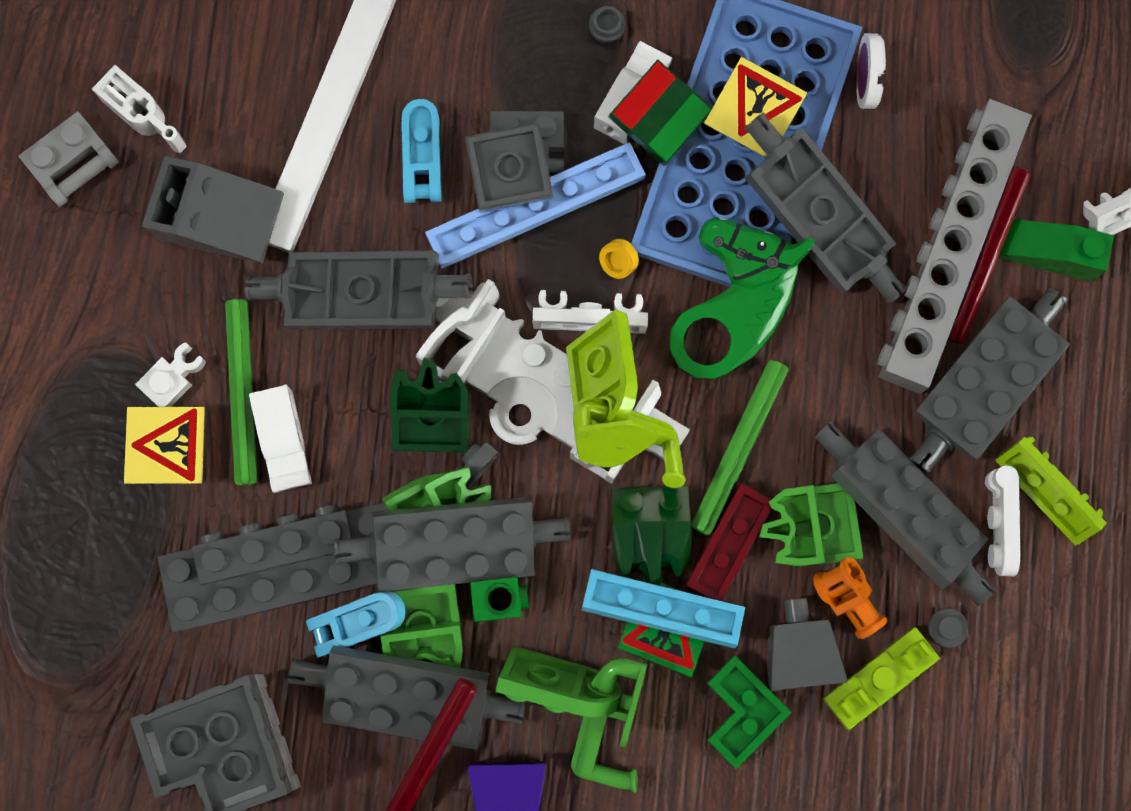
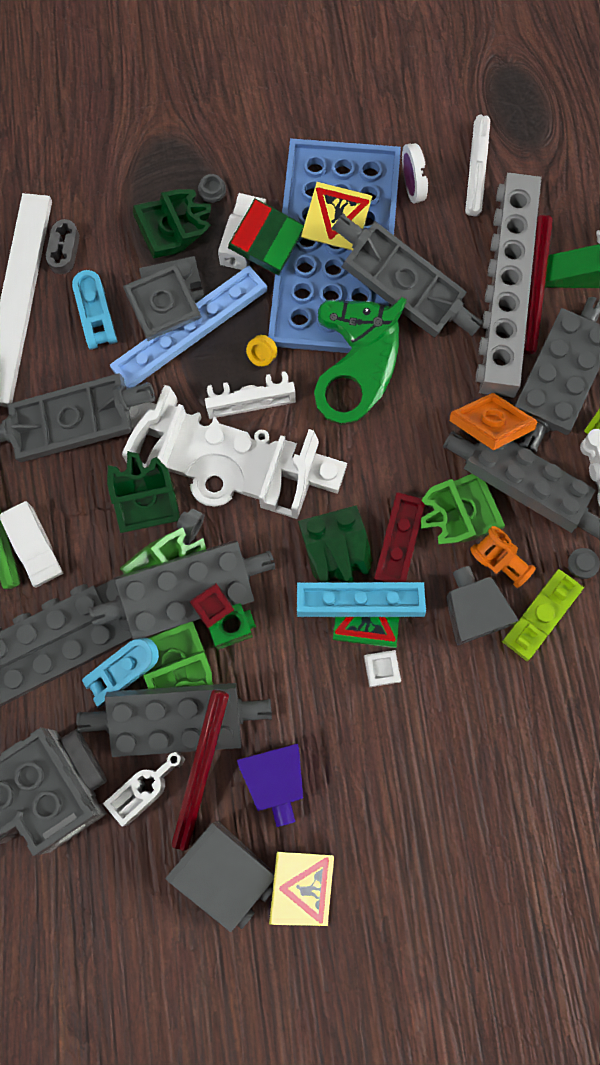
camera: 10 degrees left, 5 degrees down
(287, 717) = (83, 760): none -> flat silver beam
(339, 767) = (133, 788): none -> white piece
(392, 55) = (68, 247): none -> flat silver beam
(481, 573) = (211, 605): none -> dark red tile
(545, 59) = (172, 221): none -> dark green plate
(580, 691) = (314, 678): bright green plate -> none
(604, 400) = (273, 447): lime plate -> none
(668, 695) = (382, 668): none -> white tile
(739, 447) = (388, 468): bright green axle -> none
(754, 715) = (452, 664): green plate -> none
(883, 424) = (493, 421): none -> orange plate
(956, 74) = (478, 164): none -> white axle

